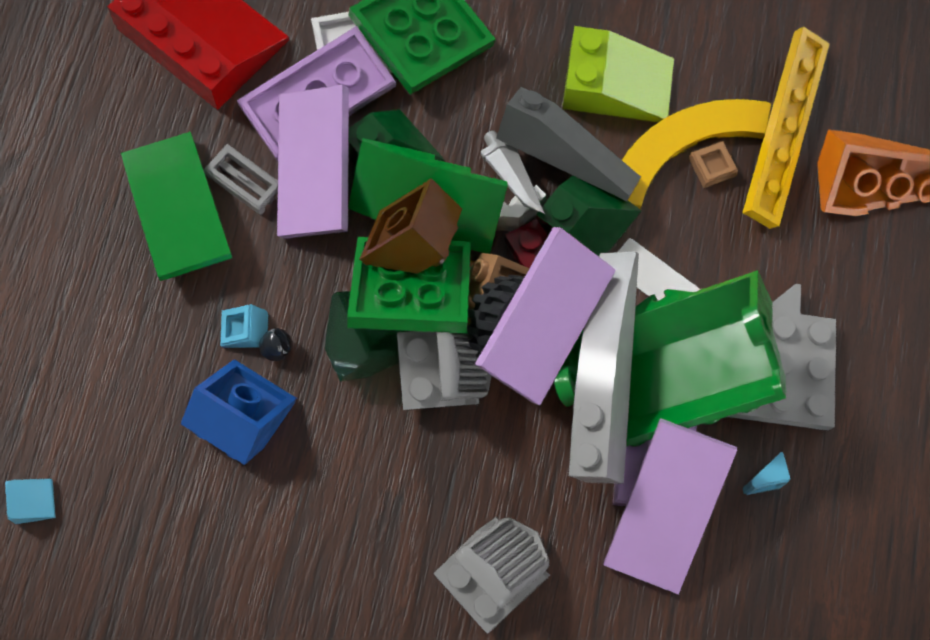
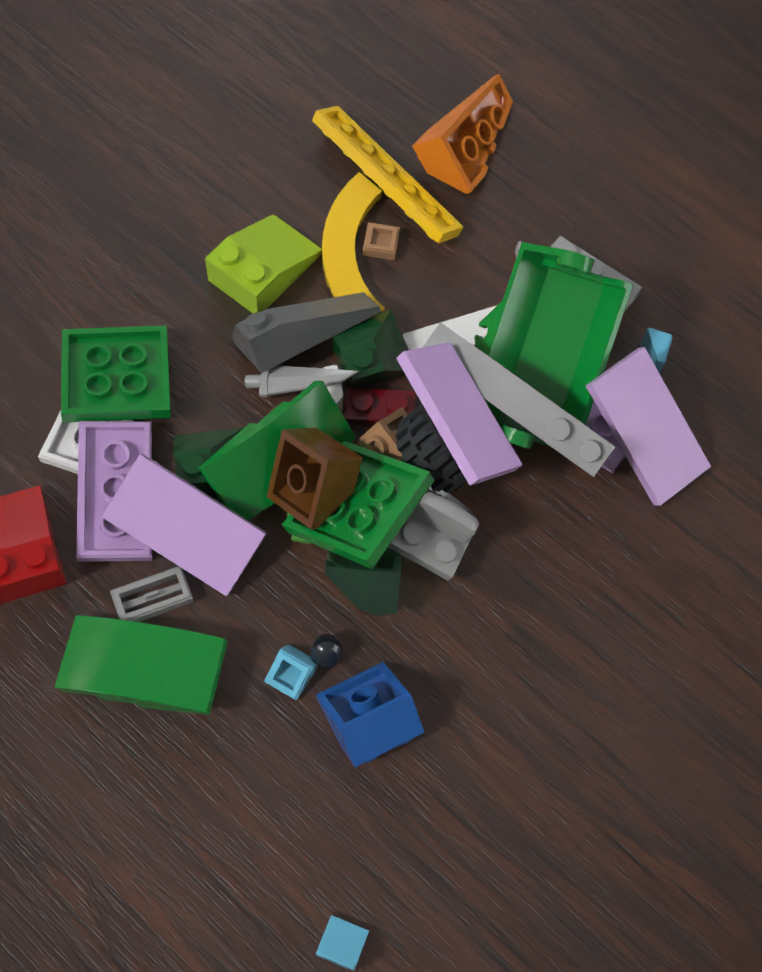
camera: 60 degrees left, 5 degrees down
(495, 570) = (624, 585): light grey piece -> none

